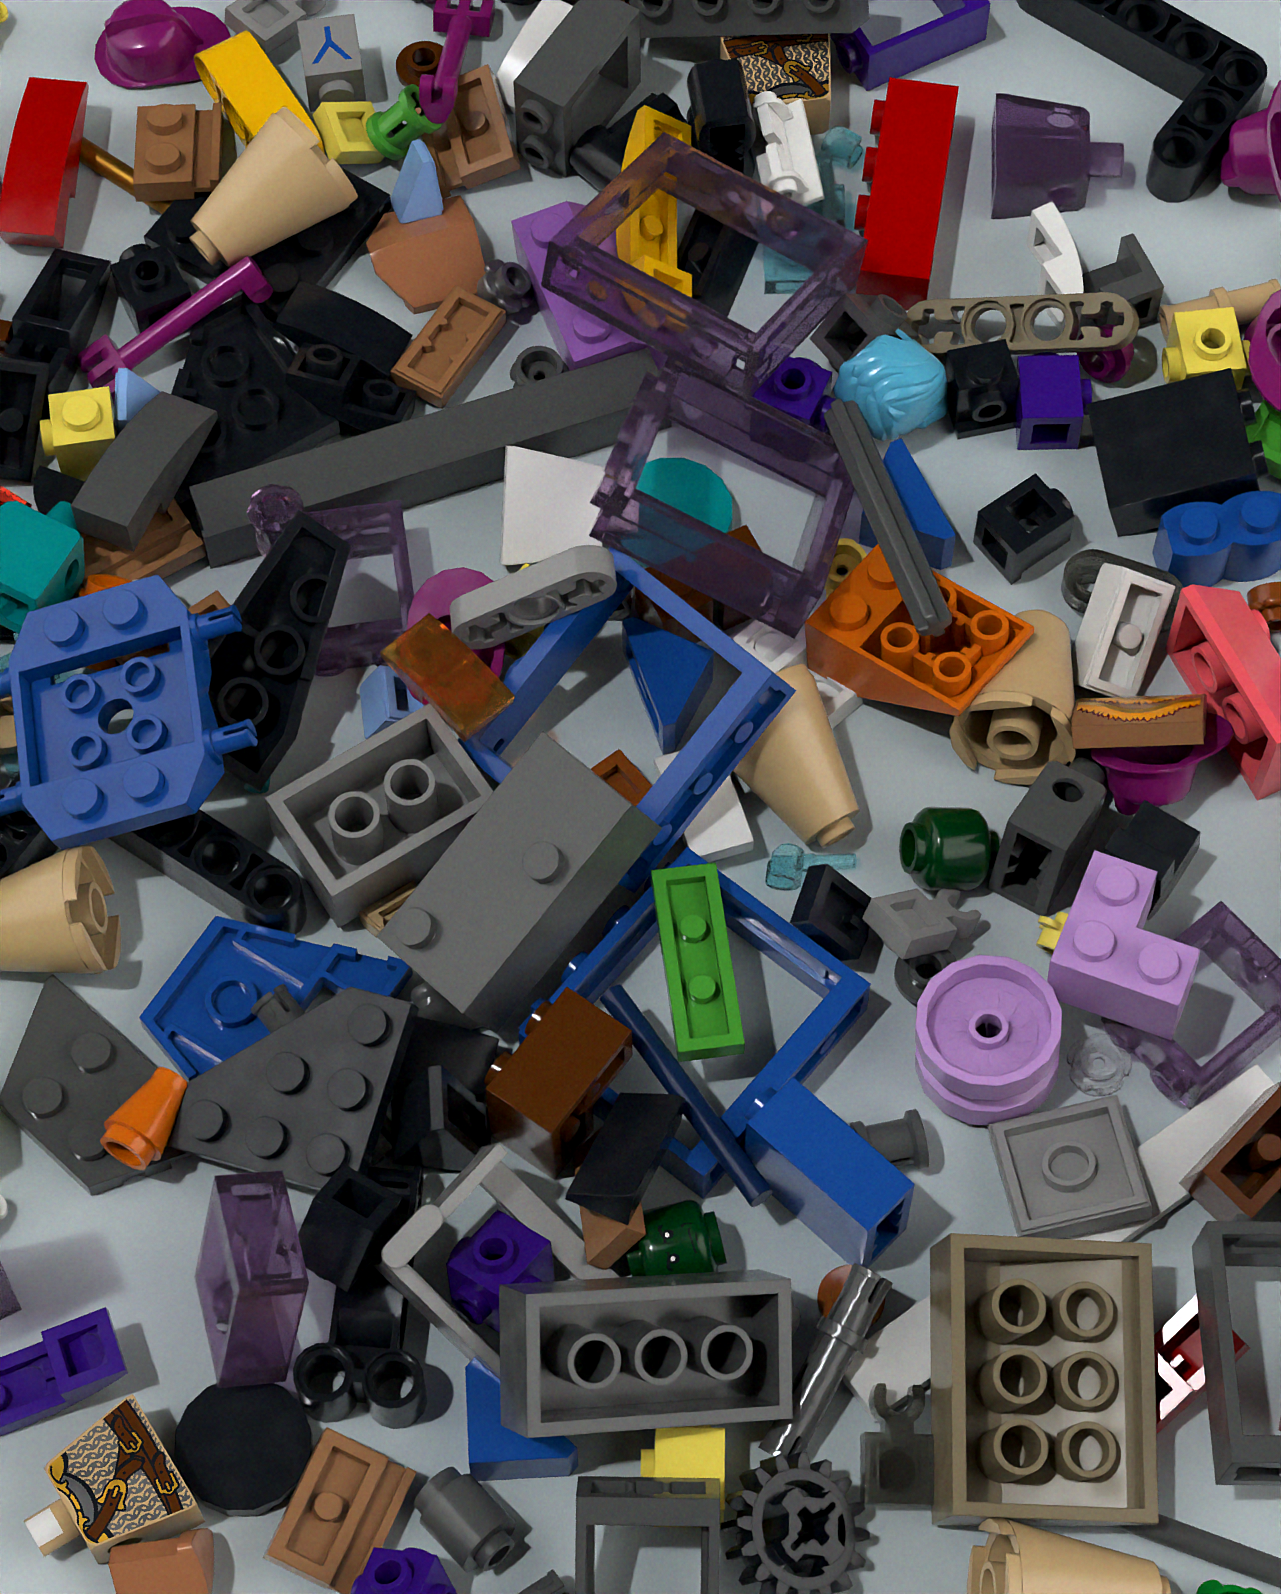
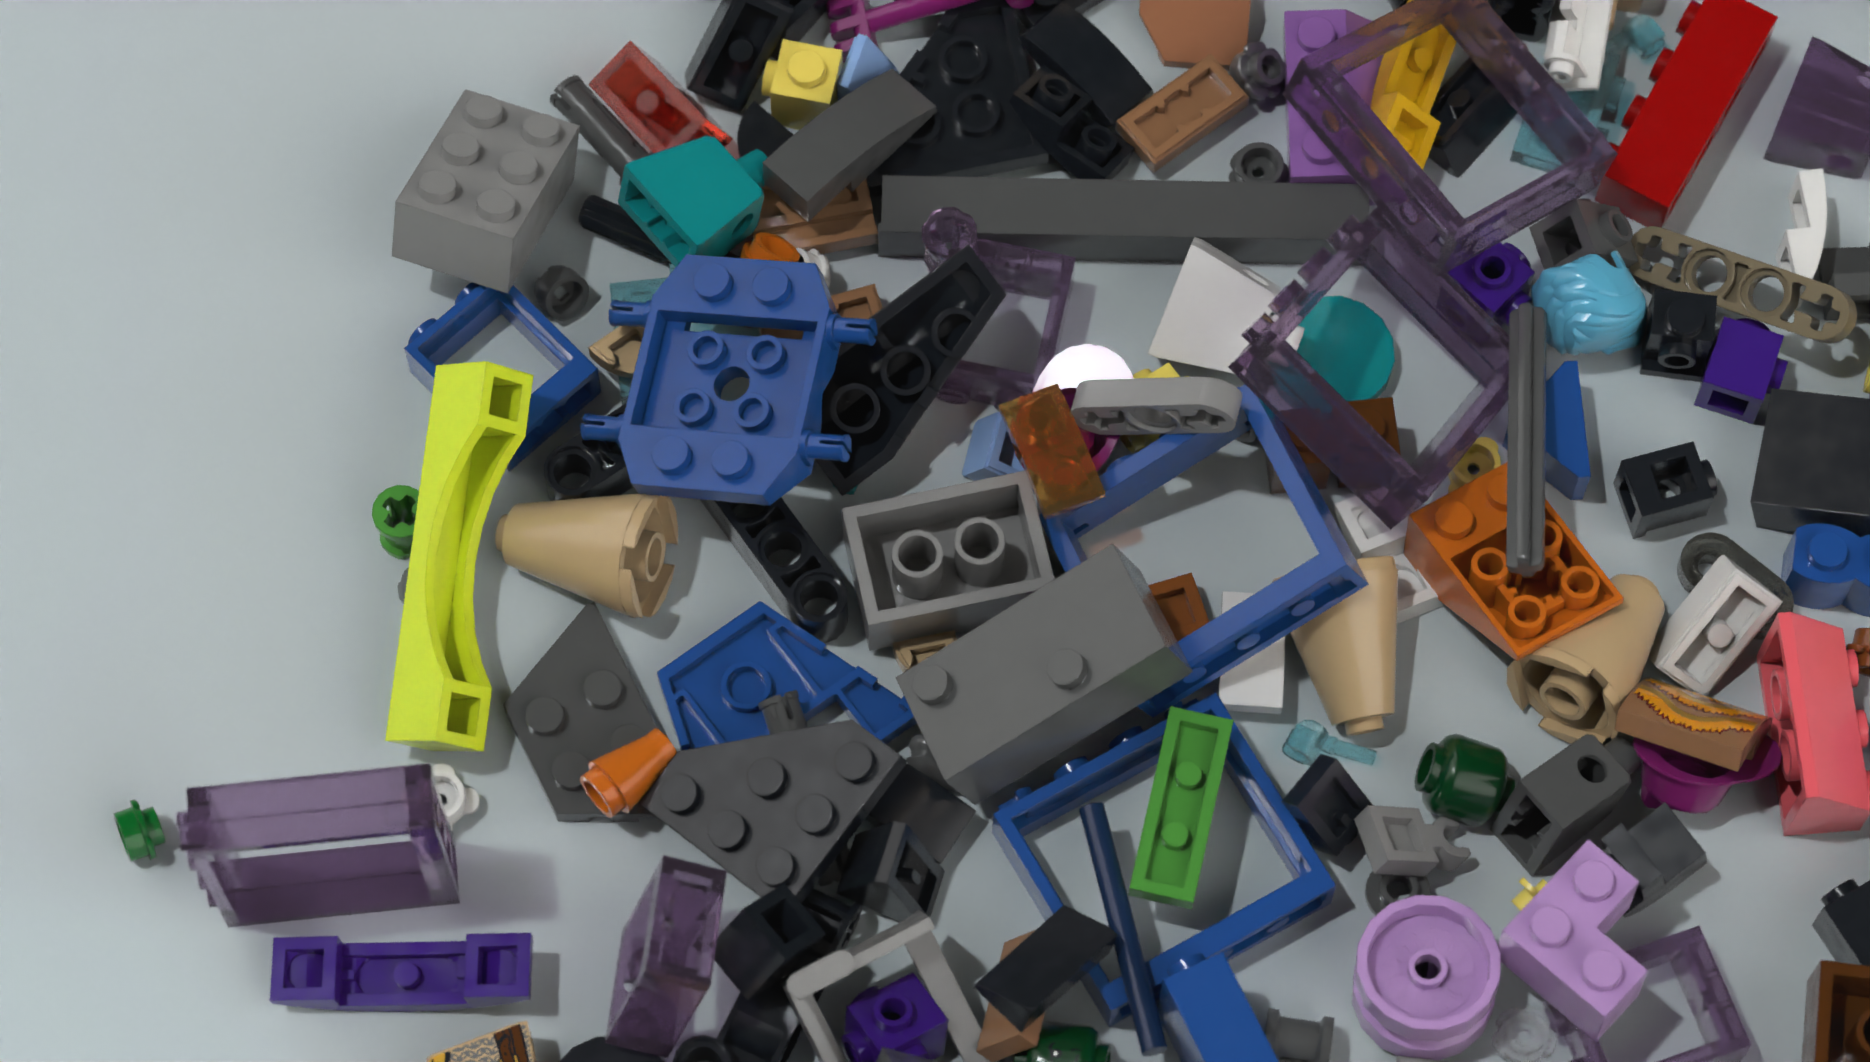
camera: 20 degrees right, 5 degrees up
(548, 1087) = (1008, 870): reddish brown brick -> none
(669, 677) = (1264, 520): blue slope -> none
(1107, 365) = (1814, 353): magenta plate -> none

